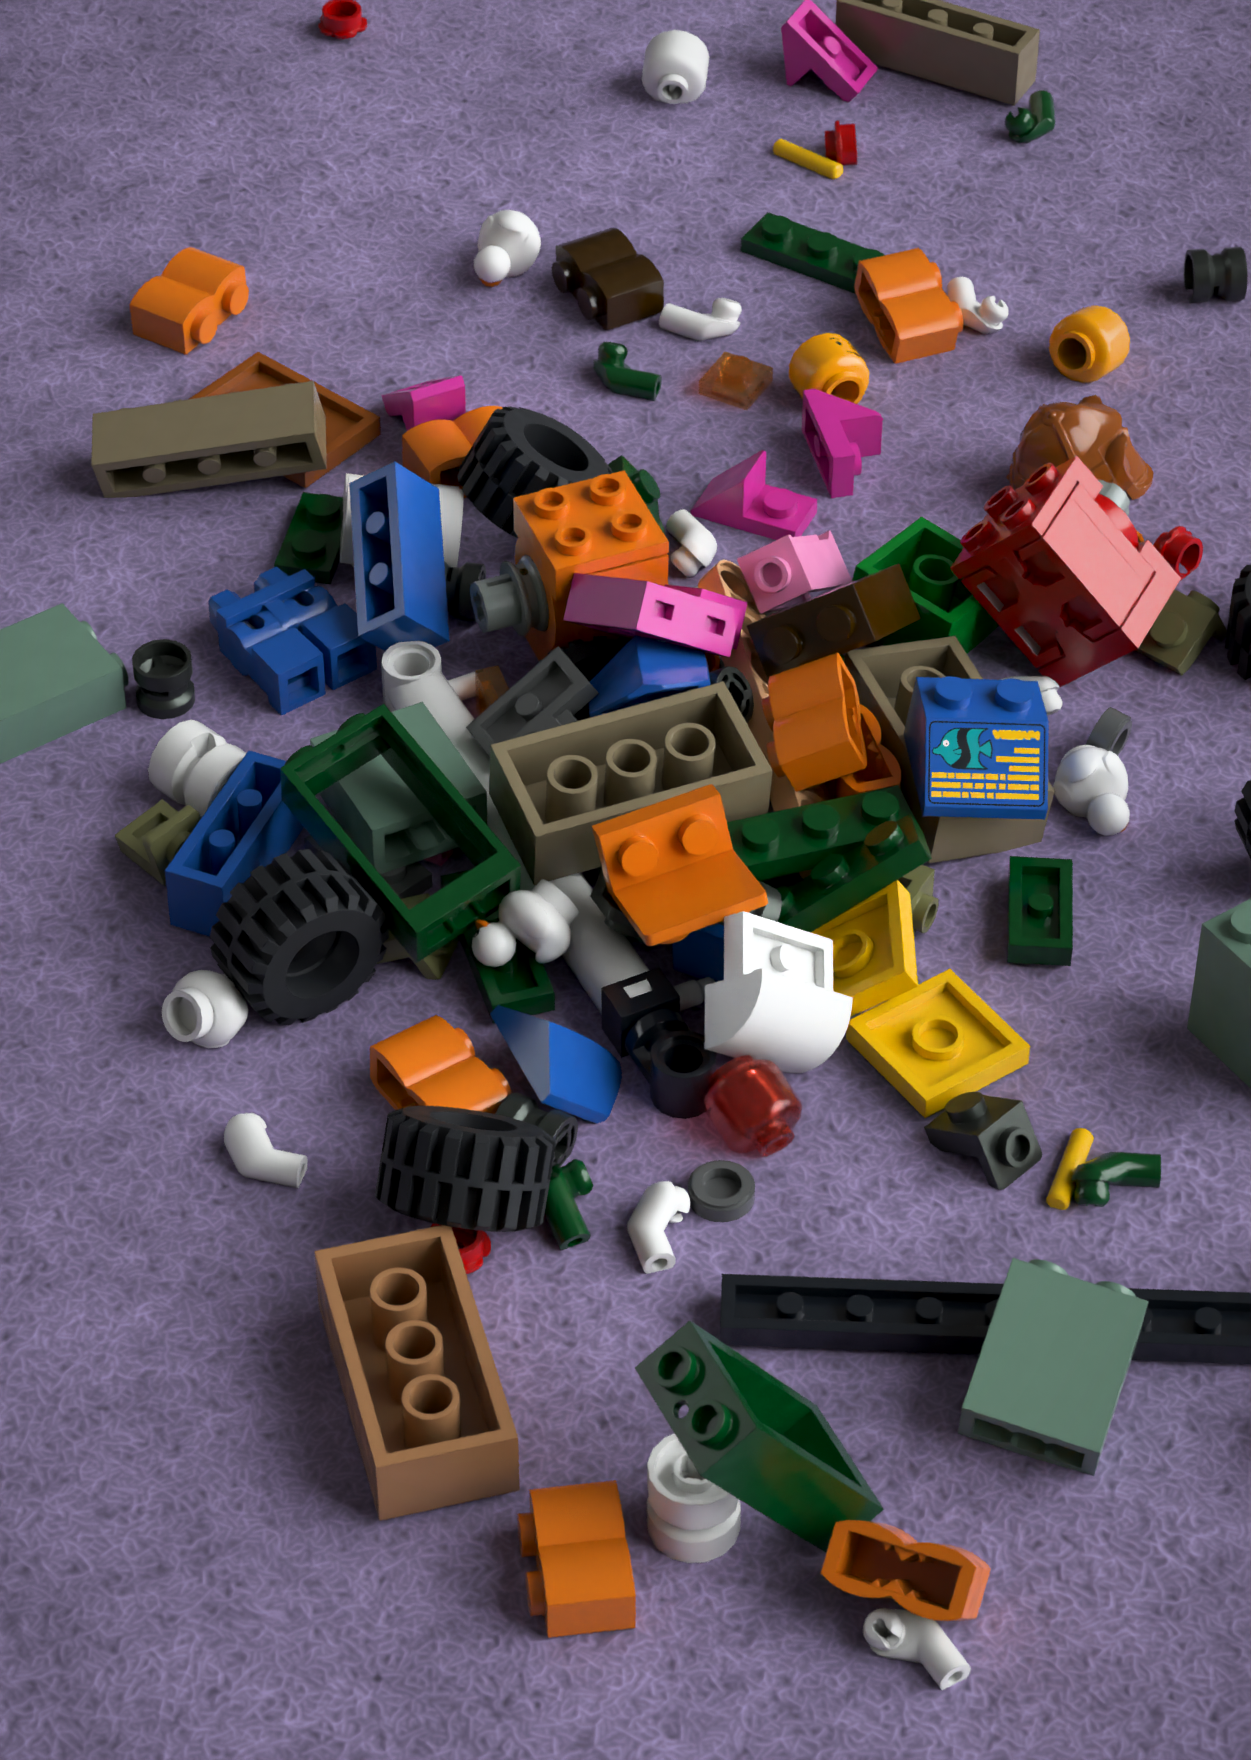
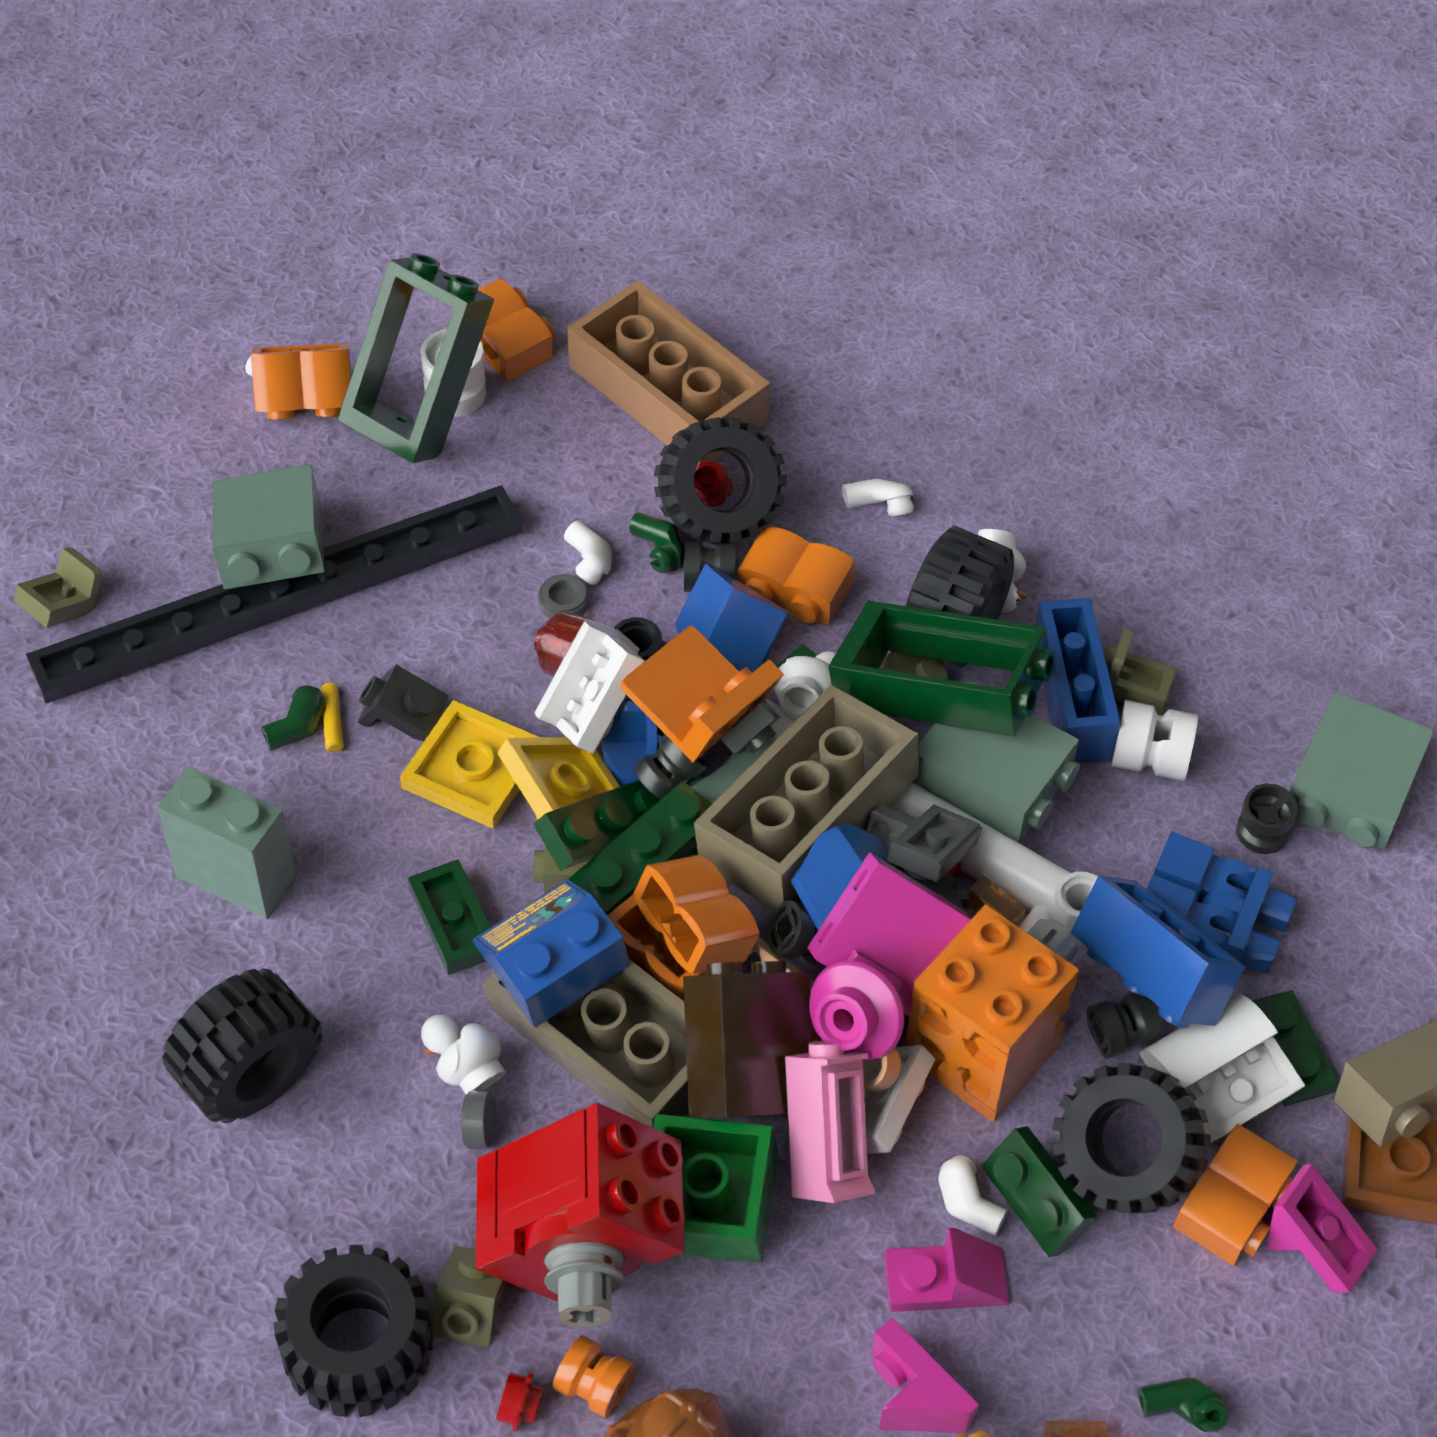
camera: 150 degrees right, 10 degrees up
(739, 567) = (868, 998): none -> dark pink piece

